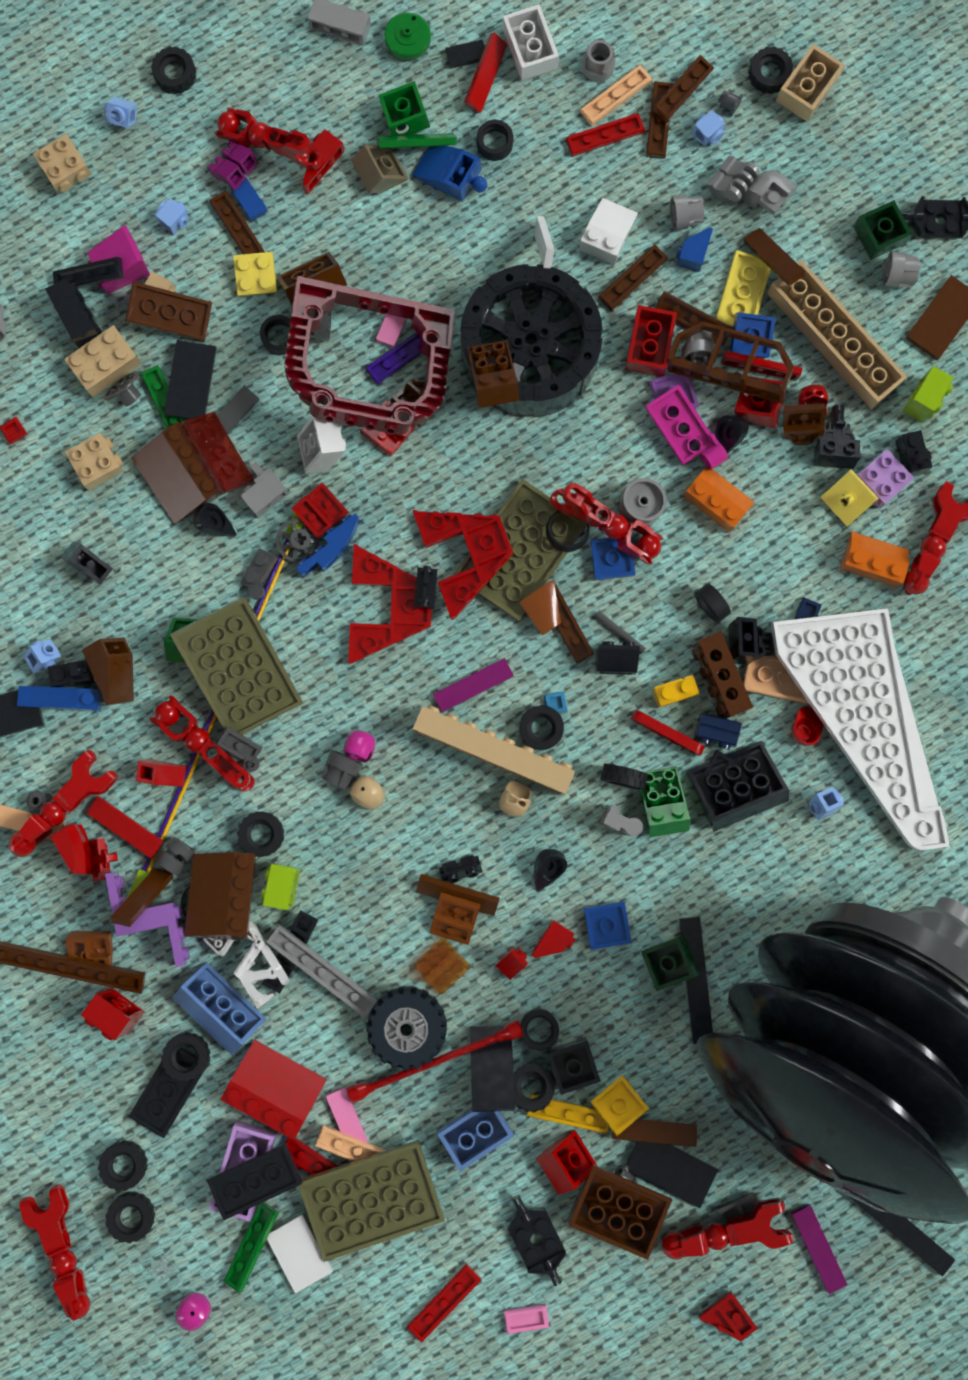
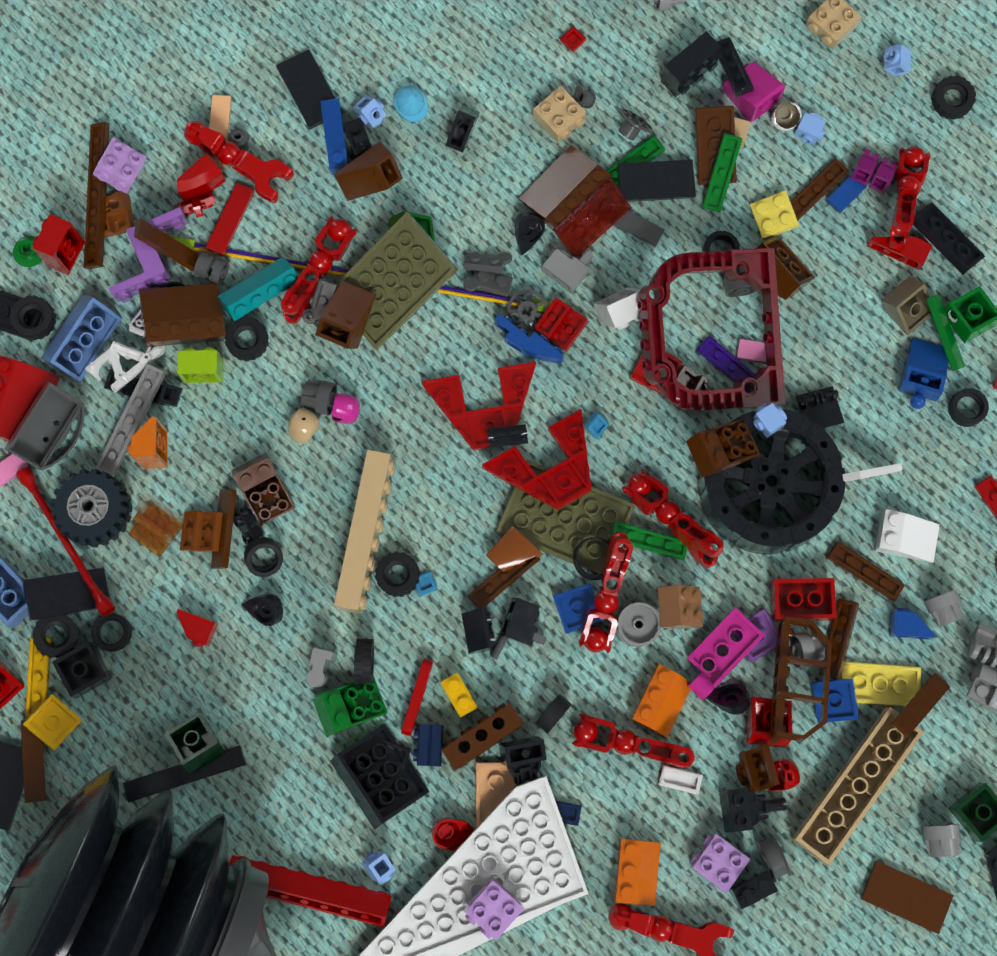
camera: 80 degrees right, 5 degrees down
(38, 933) = (119, 165): none -> lavender brick
(43, 612) = (411, 103): none -> medium azure piece
(82, 431) = (584, 98): none -> dark grey brick
(102, 361) = (655, 99): tan brick -> none
(116, 1055) = (26, 259): none -> green piece
(153, 235) = (786, 116): none -> dark tan hair
(160, 773) = (284, 236): red slope -> none
(199, 312) = (722, 172): none -> green tile
(211, 809) = (258, 288): none -> teal brick
(237, 570) = (487, 263): none -> dark grey hinge
(262, 723) = (346, 316): none -> reddish brown slope
(303, 1069) = (38, 423): none -> dark grey piece
(322, 112) = (947, 238): none -> black tile
(356, 953) = (150, 445): none -> orange slope
(423, 846) = (263, 489): none -> reddish brown slope
(432, 499) = (596, 425): none -> dark azure tile
(462, 278) = (821, 407): none -> black hinge
(473, 685) = (425, 502): magenta tile -> none
(474, 321) = (769, 419): none -> light blue brick
(508, 854) = (270, 569): none -> black tyre
(512, 962) = (169, 593): red slope -> none
(515, 799) = (323, 563): tan helmet -> none
(537, 448) = (694, 537): none -> red piece
(561, 472) = (651, 540): none -> green tile
(607, 925) = (220, 676): blue plate -> none
(616, 616) = (519, 622): none -> black hinge
(635, 457) = (680, 607): none -> medium nougat brick
(753, 539) = (626, 742): none -> red piece
(759, 365) = (806, 716): red tile -> none
(796, 498) = (680, 779): none -> white tile
(842, 860) = (324, 894): none -> red brick
(849, 497) = (692, 831): light yellow tile -> none
(889, 427) = (772, 857): none -> dark grey wheel
(889, 699) = (493, 909): none -> lavender brick
(928, 394) = (817, 891): lime brick -> none

